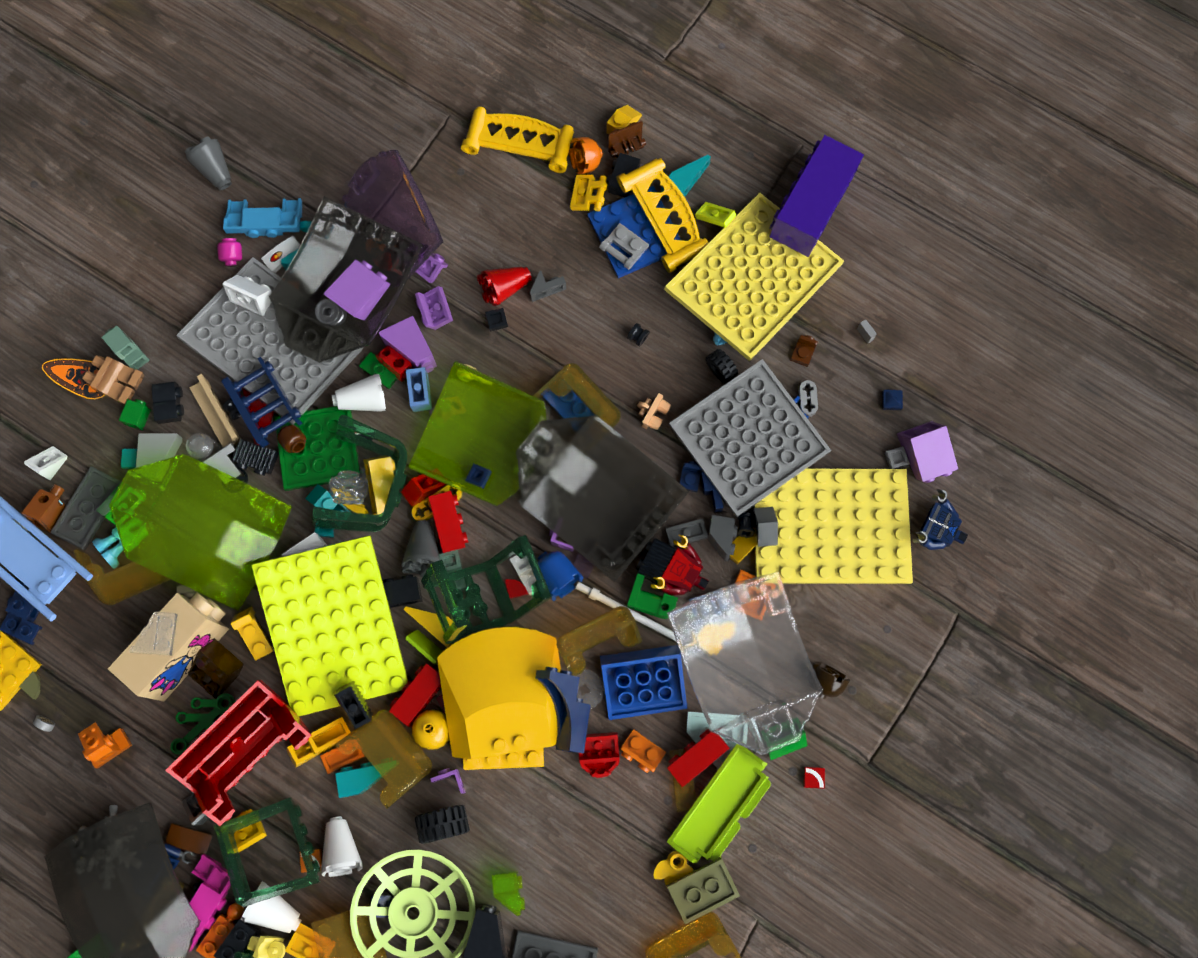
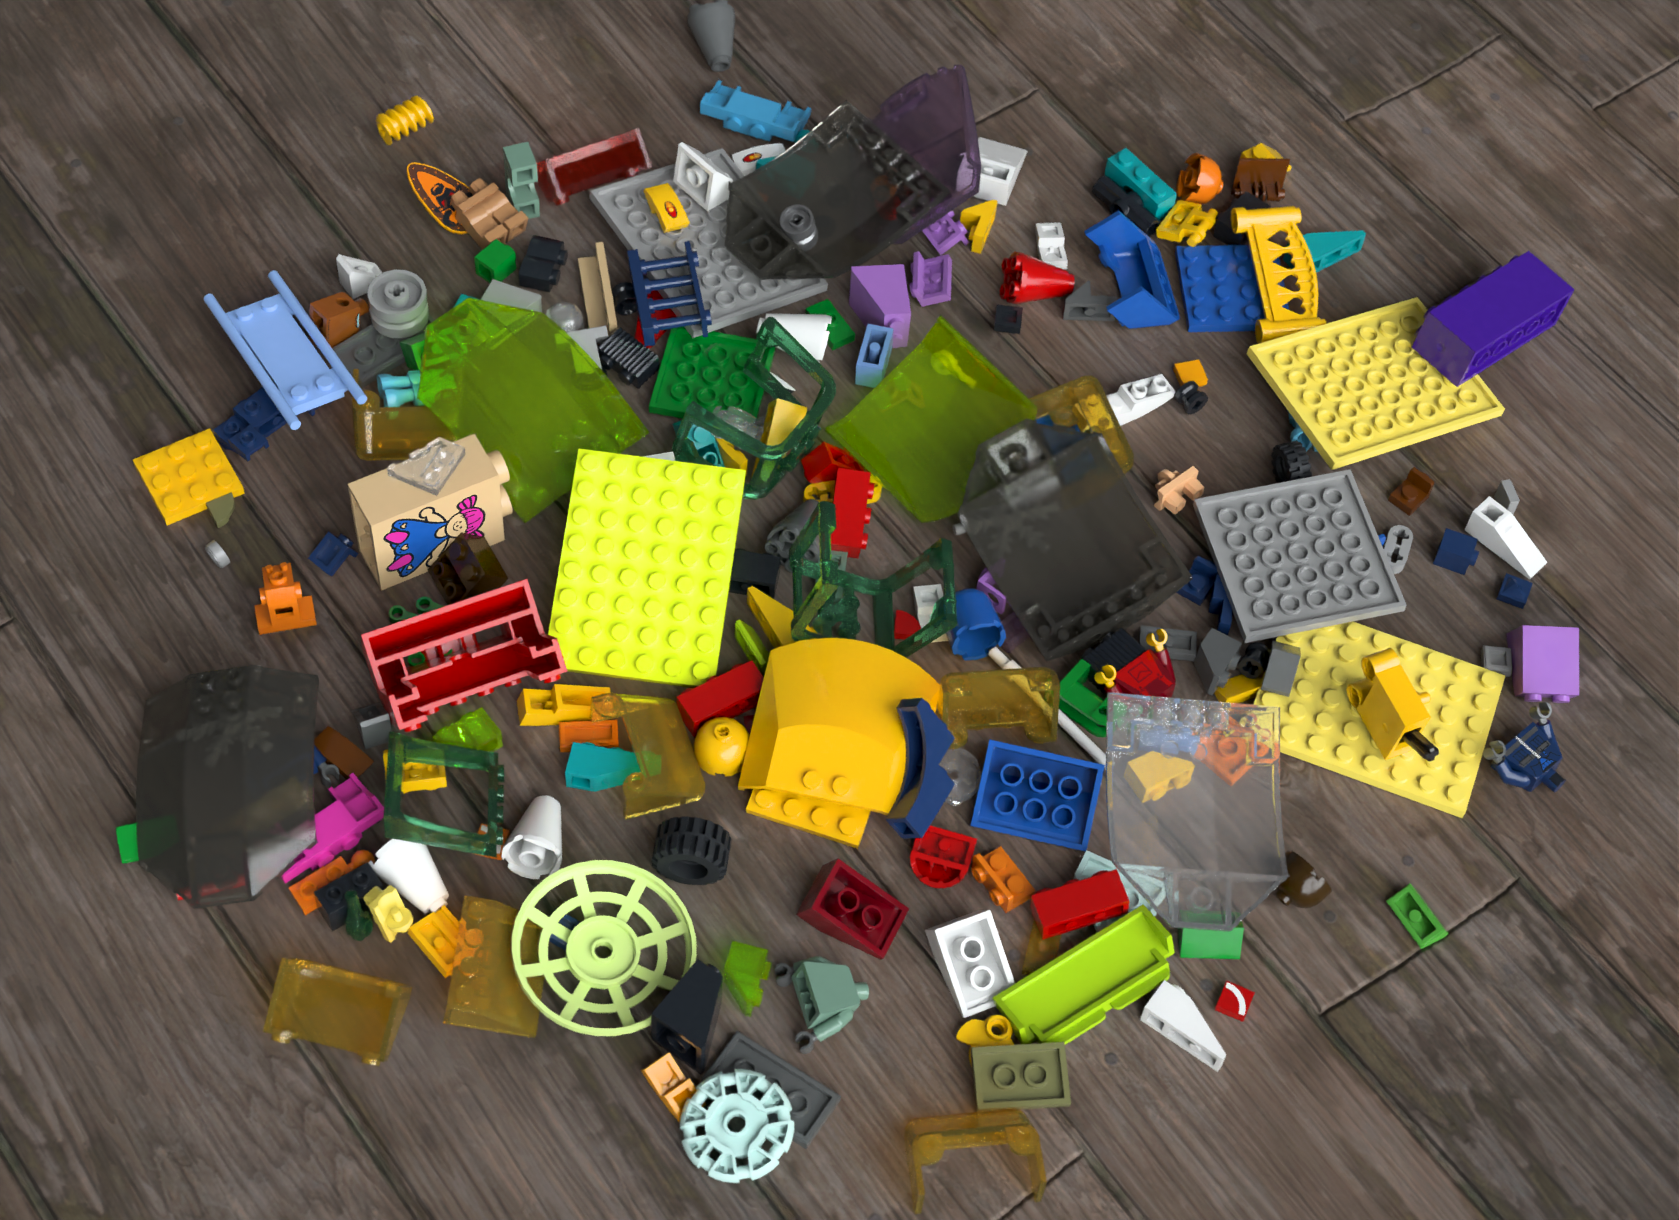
camera: 15 degrees right, 20 degrees down
(22, 322) = (402, 117): none -> yellow piece
(82, 481) = (398, 303): none -> light grey wheel
(118, 693) = (332, 552): none -> dark blue bracket
(166, 310) = (592, 166): none -> clear red windscreen
(229, 251) = (696, 132): dark pink head -> none
(233, 328) = (667, 206): none -> yellow slope
(252, 633) = (535, 547): yellow bracket -> none
(268, 791) = (472, 731): none -> clear neon green slope
(291, 439) = (686, 349): reddish brown head -> none
(353, 705) = (635, 665): black brick -> none
(358, 289) = (846, 212): medium lavender slope -> none
(394, 362) = (855, 315): red leg -> none
(443, 198) = (998, 169): none -> white slope
(447, 773) = (719, 805): medium lavender bracket -> none
(451, 249) = (979, 221): none -> yellow slope
(478, 476) = (911, 477): dark blue tile -> none
(503, 246) = (1051, 244): none -> white slope
(535, 167) = (1131, 173): none -> teal arch
(543, 194) = (1127, 203): none -> black piece
(555, 151) = (1070, 118): yellow piece -> none
(557, 816) = (852, 909): none -> dark red slope
(563, 886) = (825, 996): none -> sand green torso
(572, 249) = (1139, 273): none -> blue windscreen
(602, 351) = (1140, 398): none -> white slope
(626, 241) = (1216, 288): light grey plate -> none
(631, 314) = (1190, 371): none -> light orange tile
(644, 820) = (971, 960): none -> white slope
(715, 214) = (1347, 300): neon yellow plate -> none
(786, 808) = (1180, 1021): none -> white slope
(847, 386) = (1456, 551): none -> dark blue brick
(849, 539) = (1391, 707): none -> yellow piece
(876, 364) = (1505, 537): none -> white slope
(906, 669) = (1417, 916): none -> bright green slope

